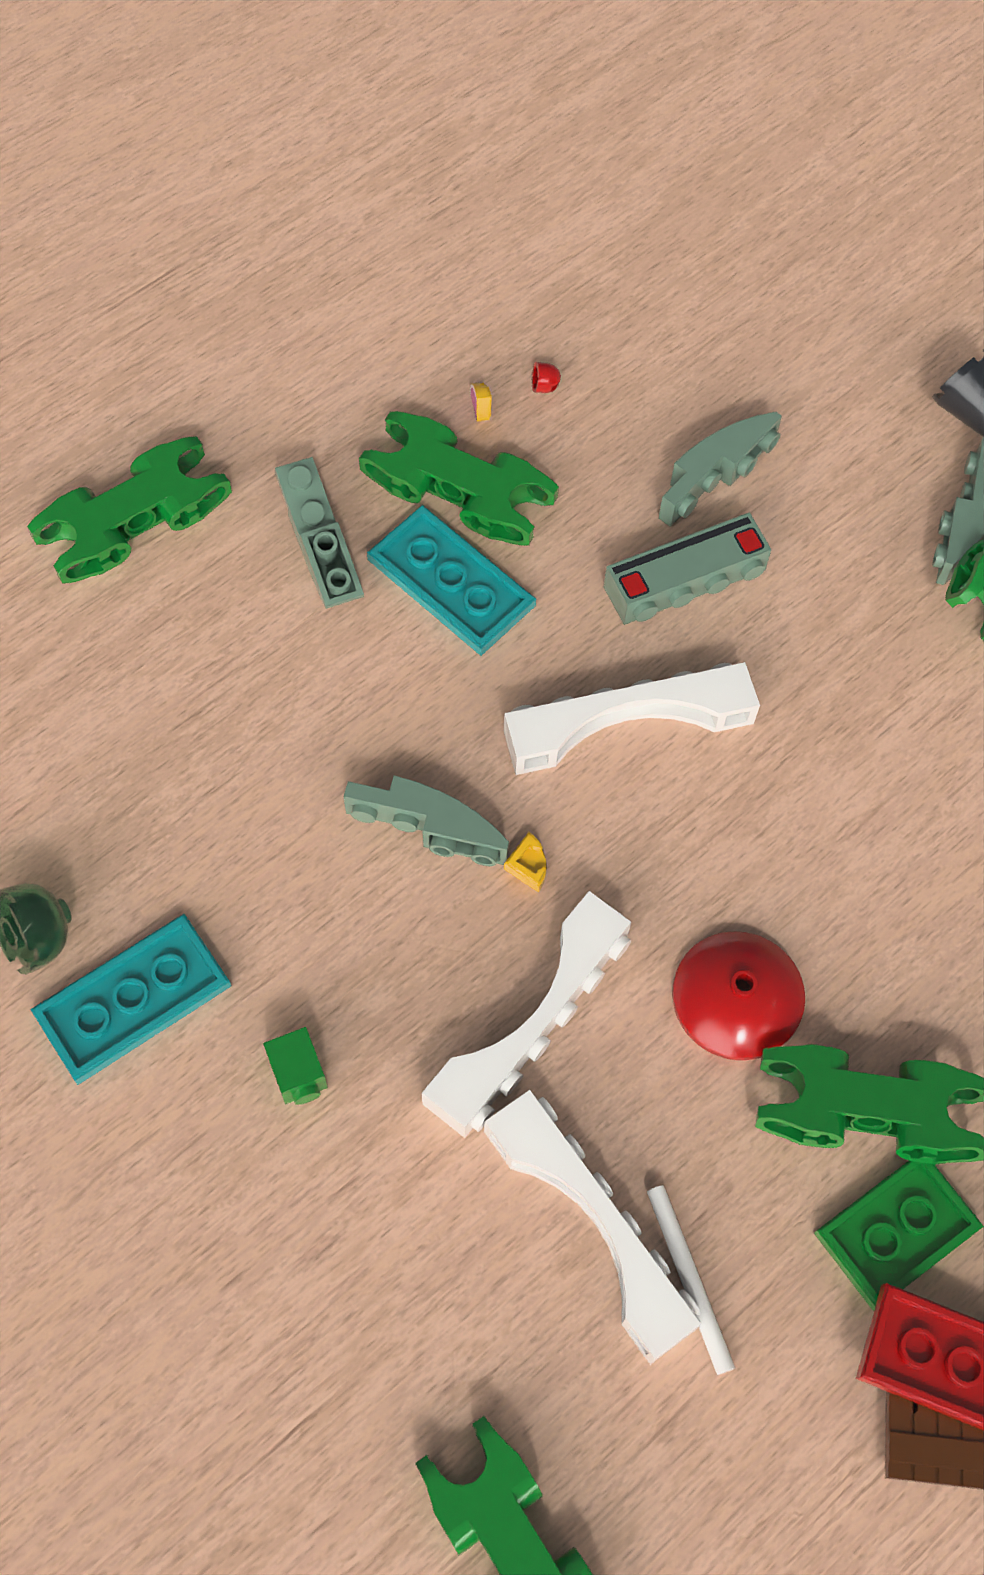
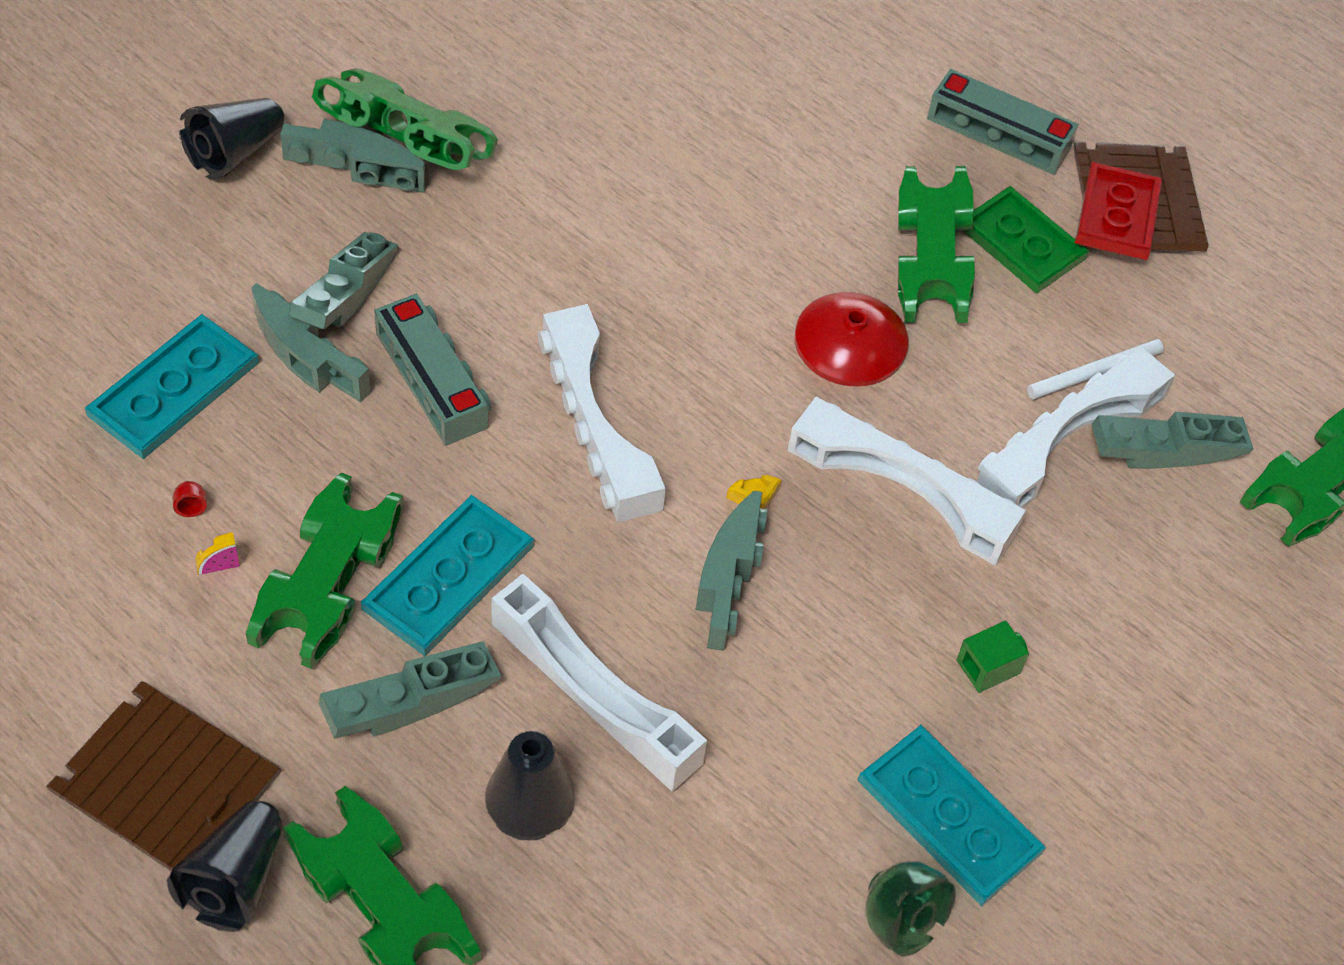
camera: 100 degrees left, 10 degrees down
(167, 399) = (229, 868): none -> black cone
(206, 620) = (529, 789): none -> black cone
(250, 721) = (645, 729): none -> white arch
(266, 368) = (162, 776): none -> reddish brown door
(570, 1344) = (1179, 442): none -> sand green slope
(677, 368) = (172, 386): none -> teal tile
(795, 502) = (347, 284): none -> sand green slope

